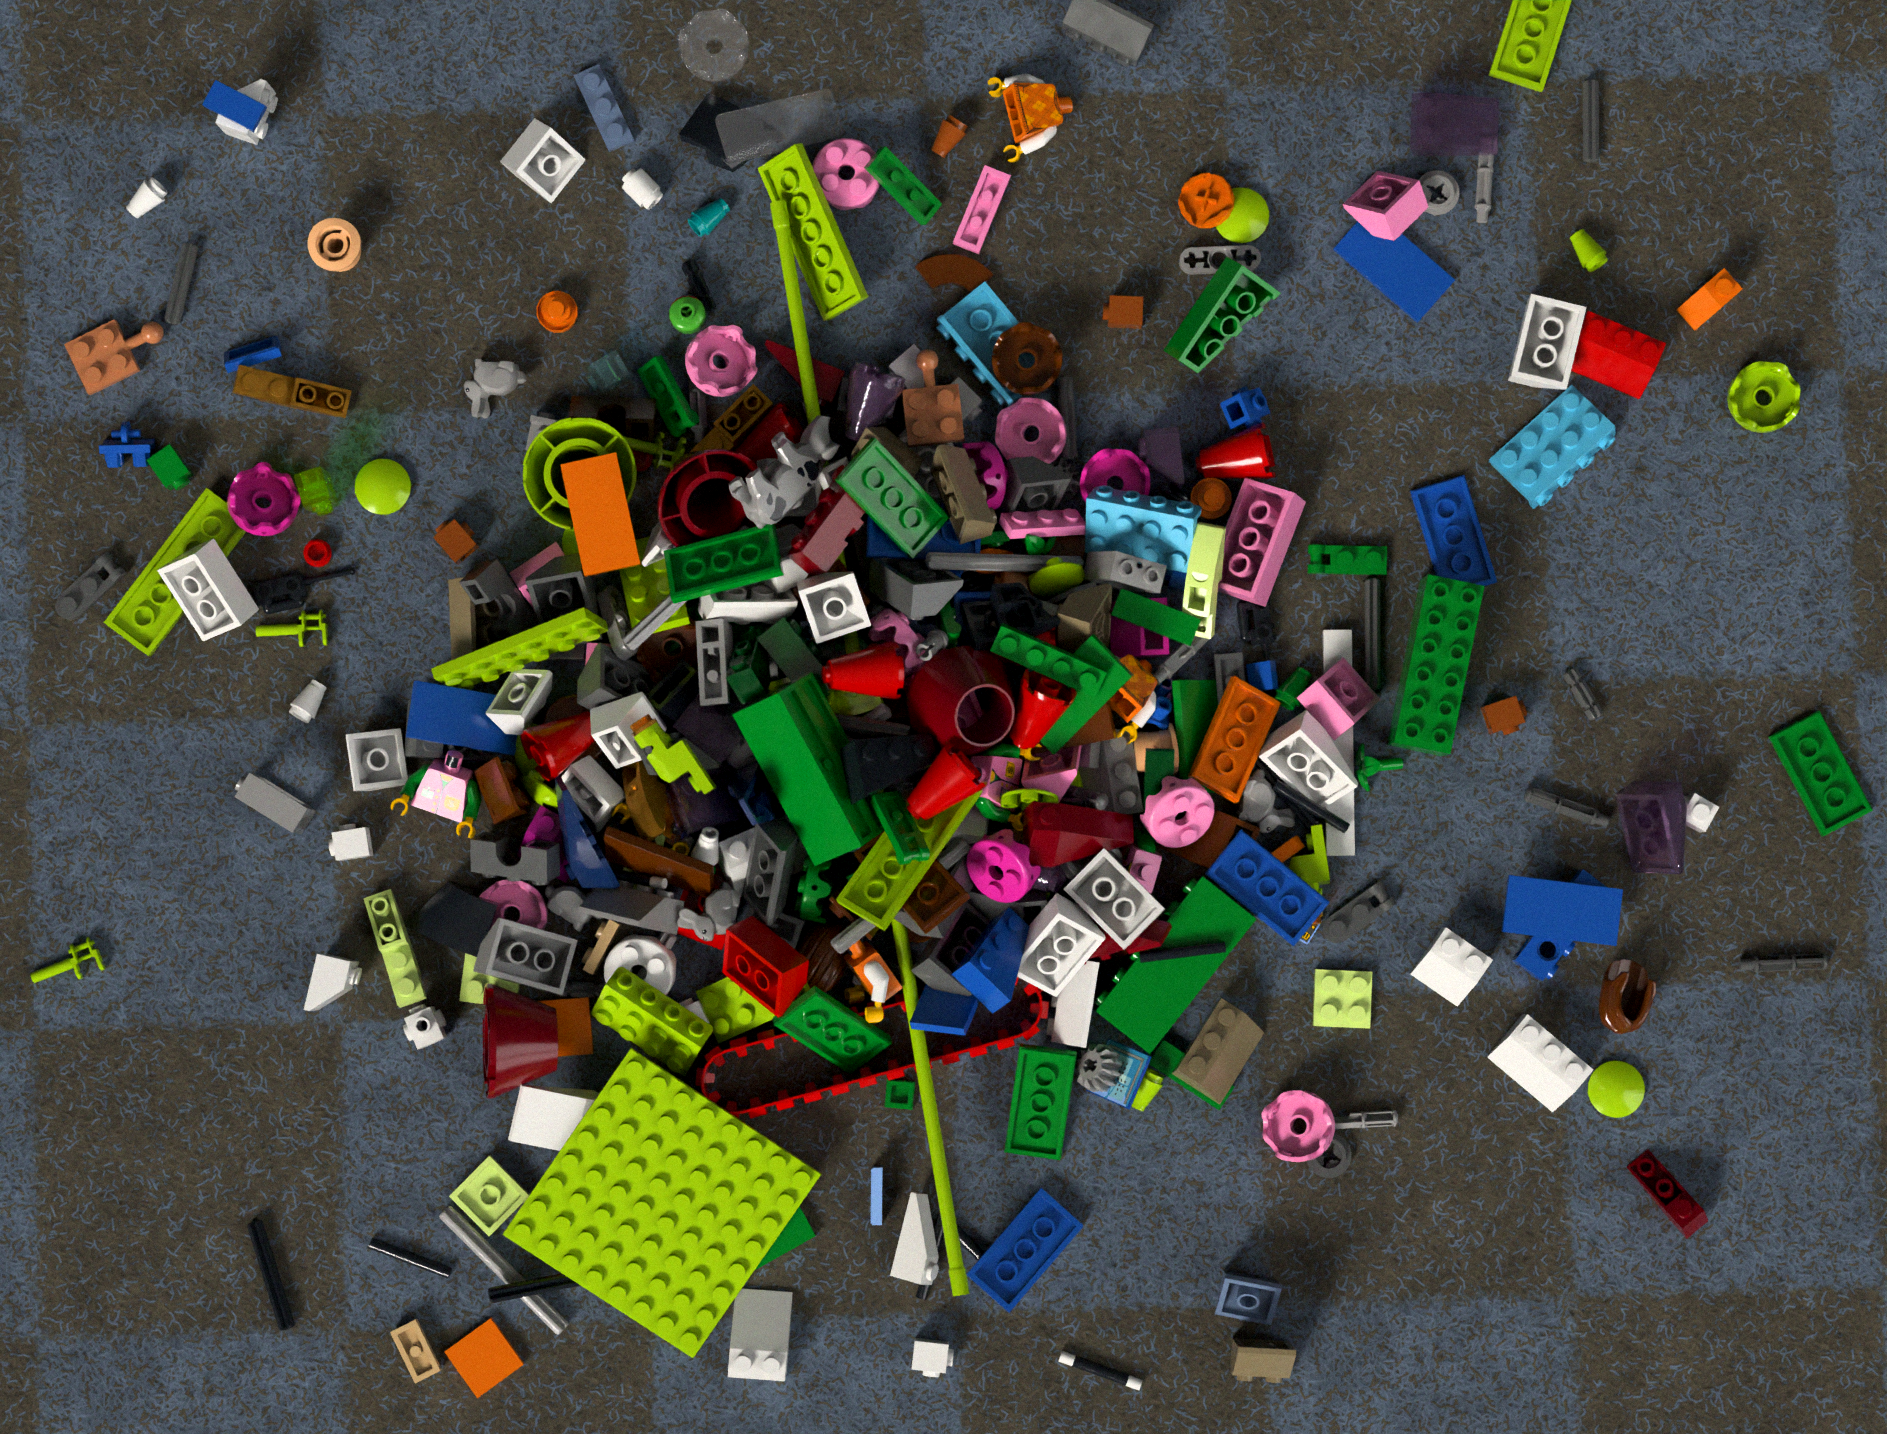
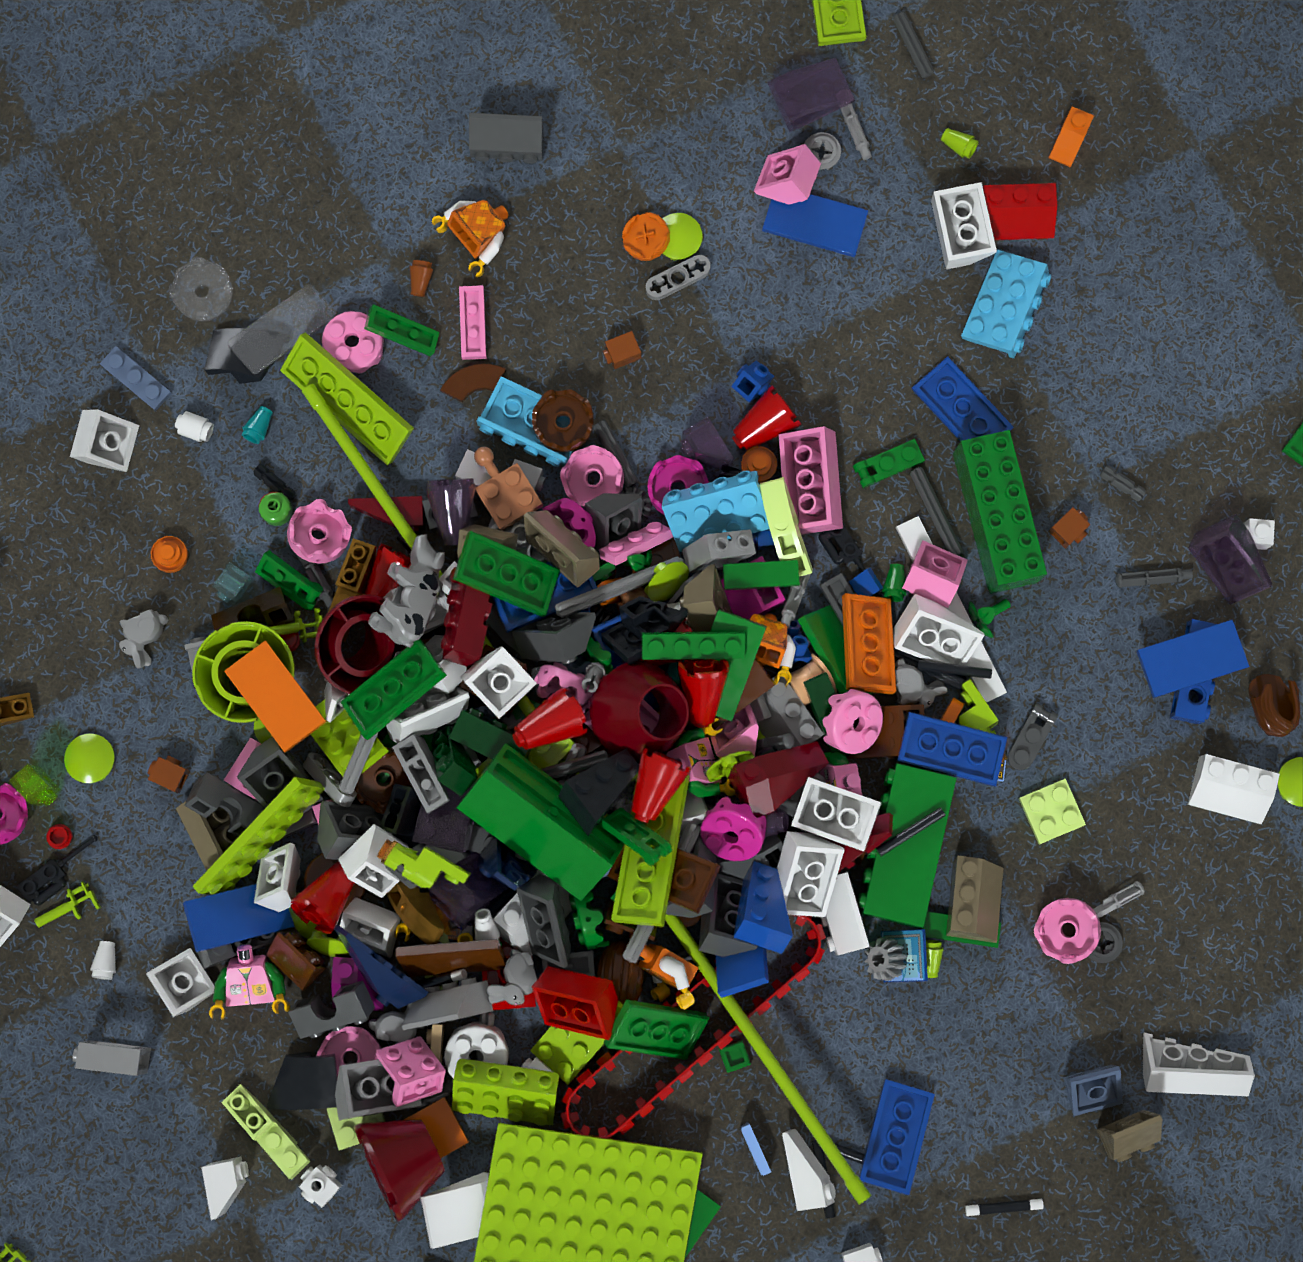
camera: 30 degrees left, 5 degrees down
(350, 843) = (190, 1061): white brick -> none
(570, 956) = (413, 1069): none -> bright pink bracket
(1040, 1101) = (851, 1008): green tile -> none
(1219, 313) = (697, 317): green wedge -> none
(1359, 1324) = (1193, 1069): none -> white wedge
(1451, 966) = (1126, 744): white slope -> none
(1780, 386) = (1155, 177): lime plate -> none

